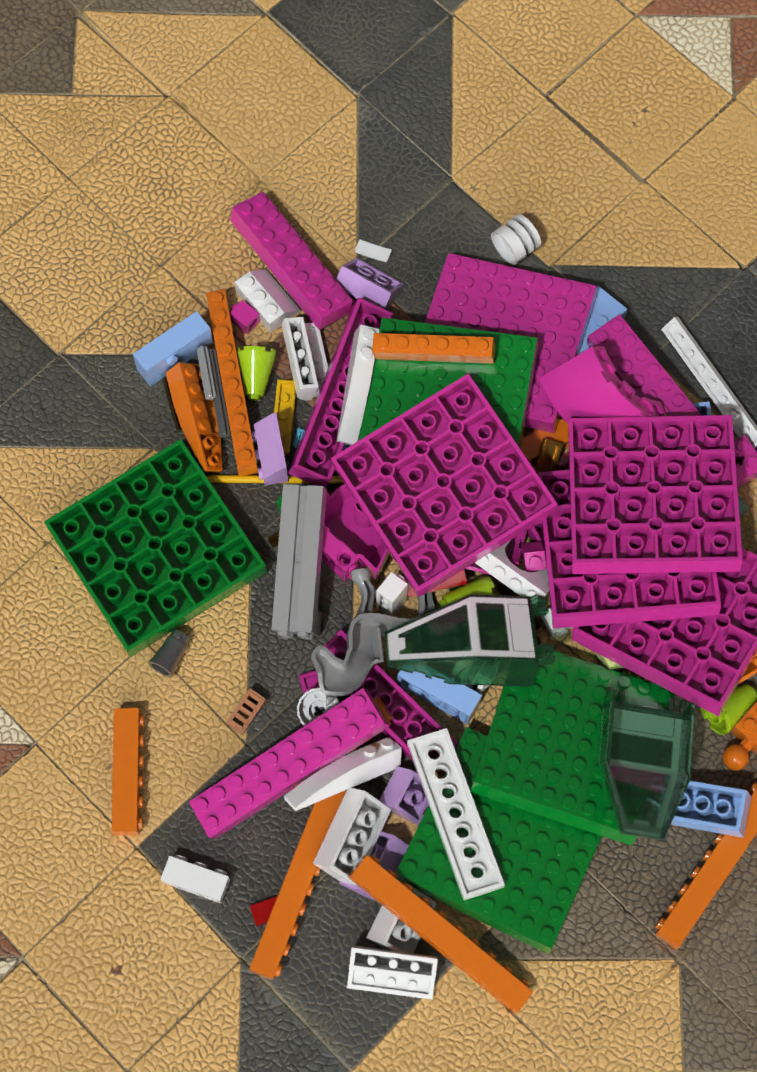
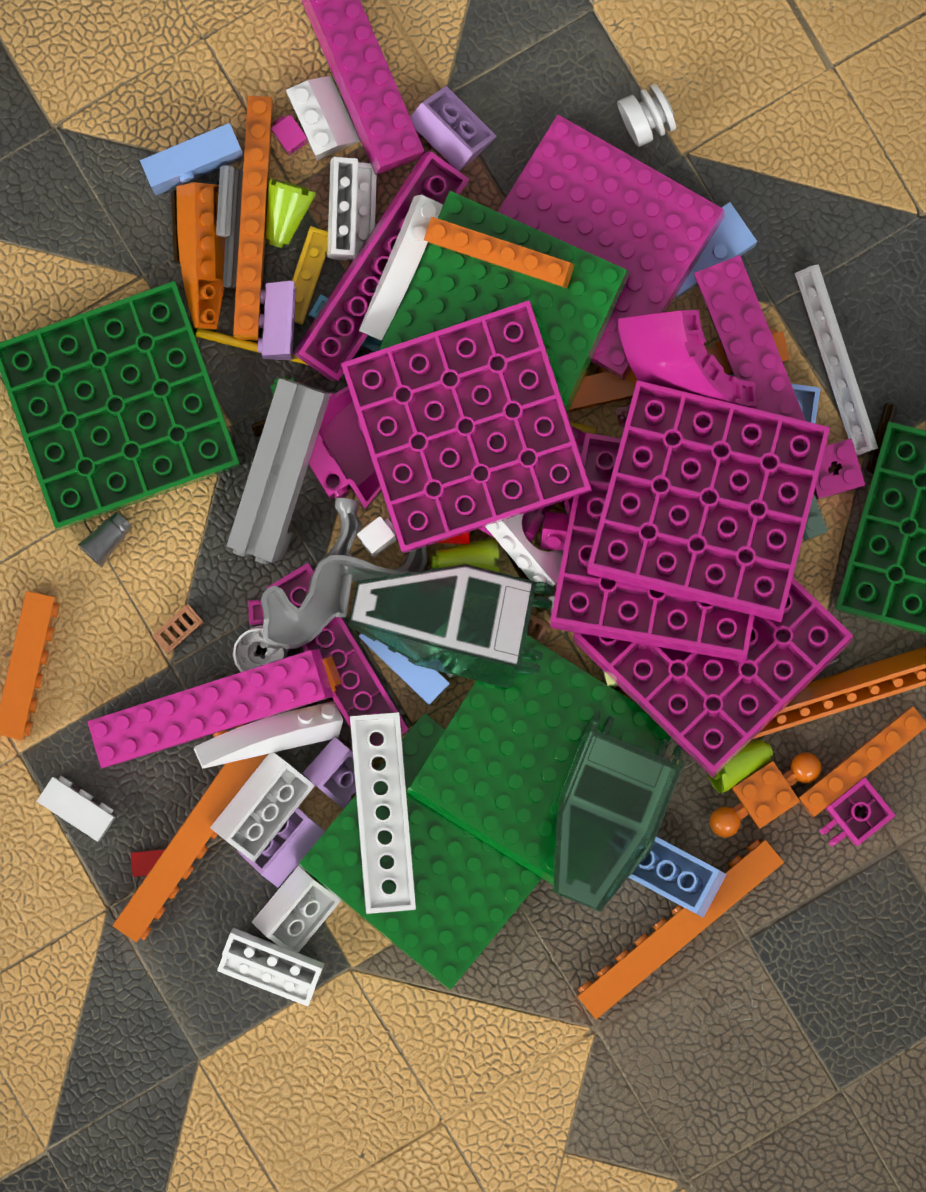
camera: 15 degrees right, 15 degrees up
(373, 251) = (469, 82): white sticker -> none
(440, 934) = (332, 941): orange brick -> none
(548, 456) = (606, 410): pearl gold tile -> none

